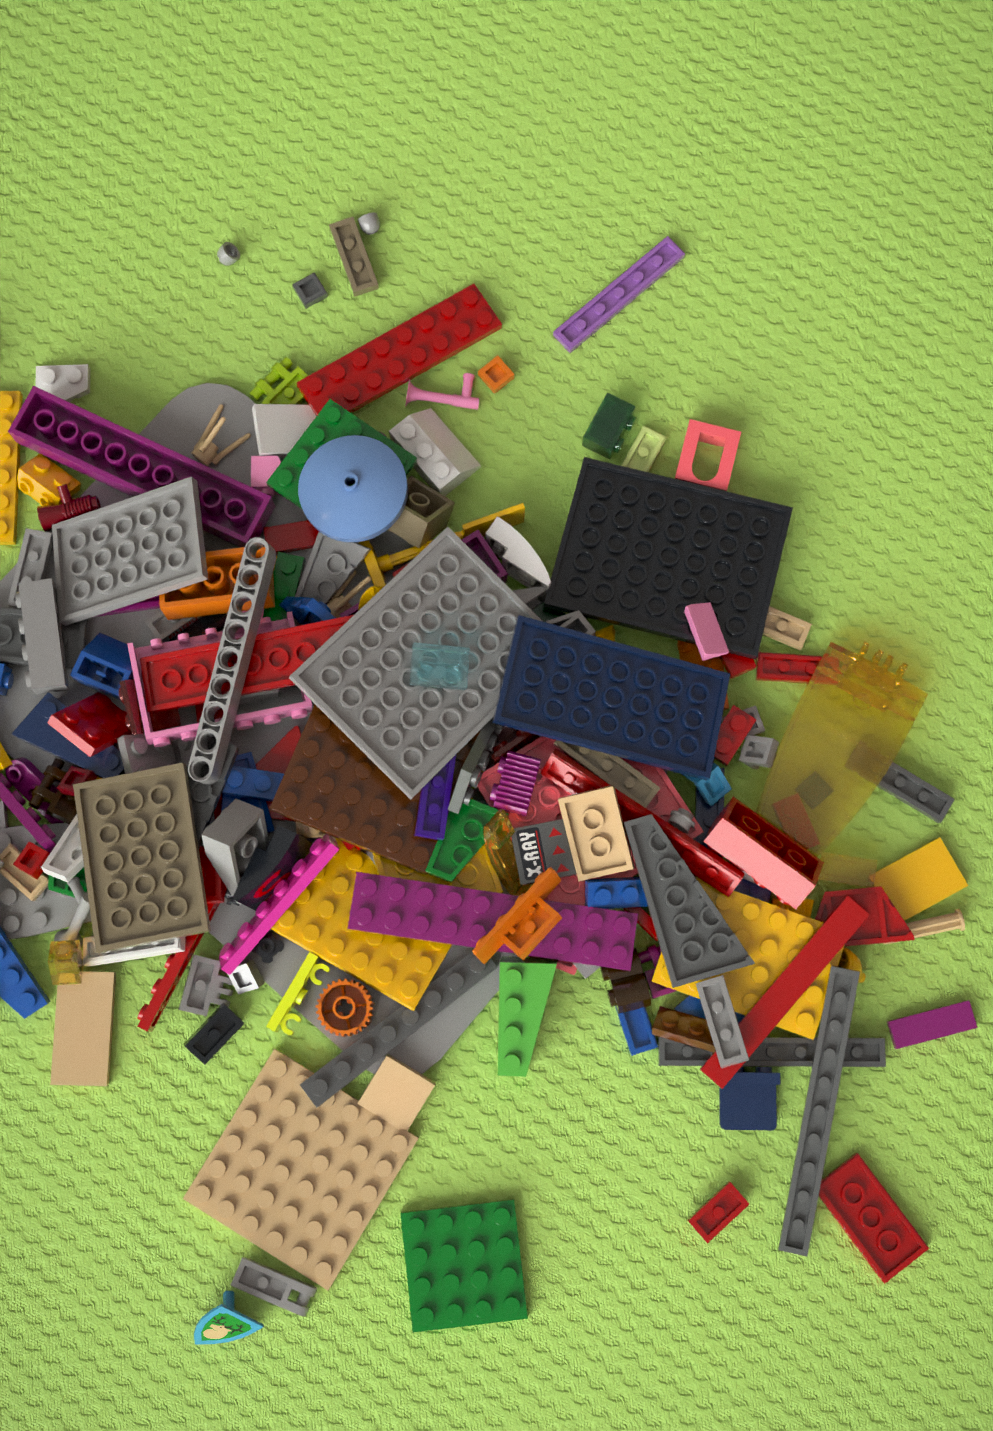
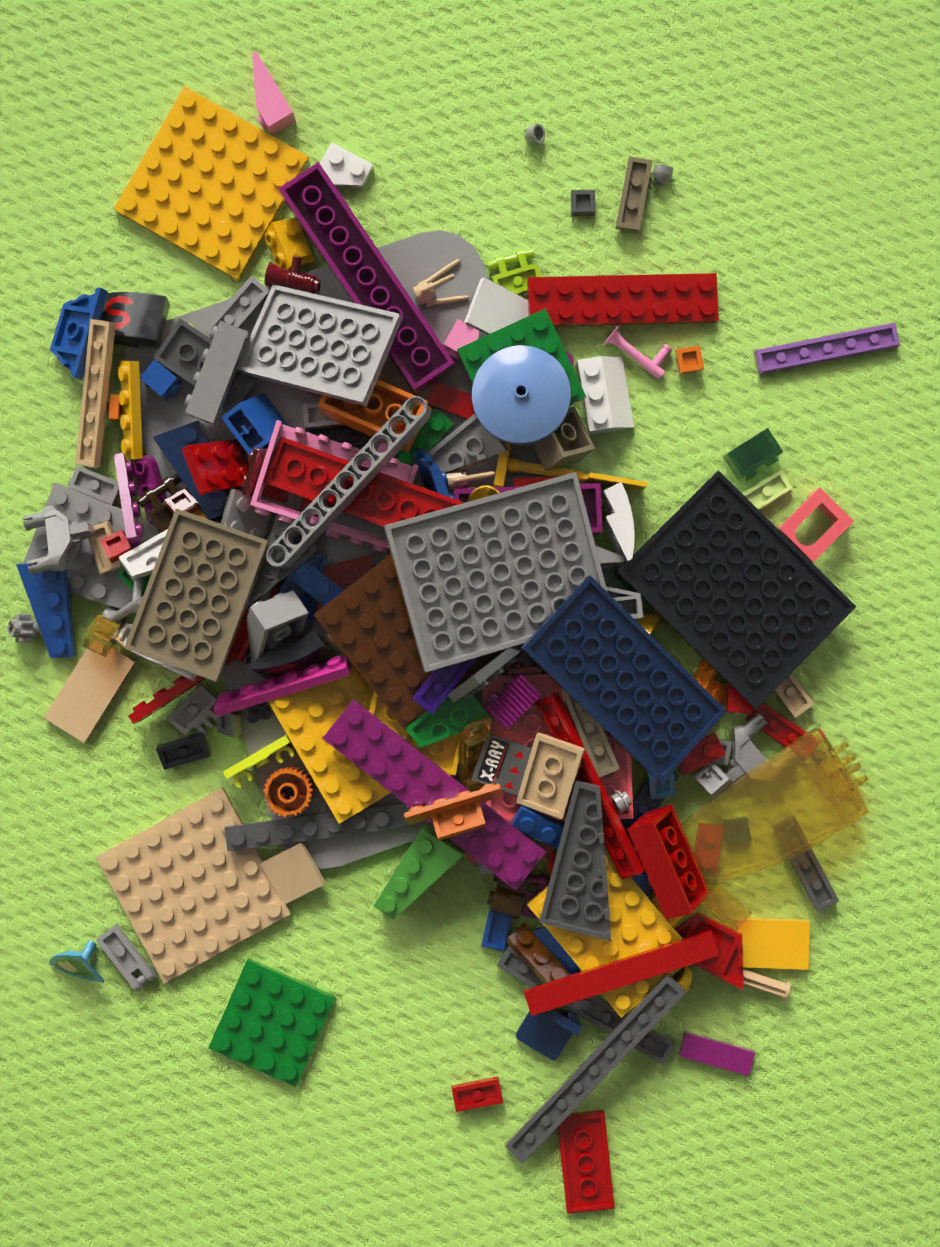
camera: 30 degrees right, 10 degrees up
(439, 666) = (504, 582): clear light blue plate -> none
(706, 630) = (728, 666): bright pink slope -> none
(722, 1021) = (560, 969): light grey plate -> none
(773, 708) = (743, 751): none -> light grey connector

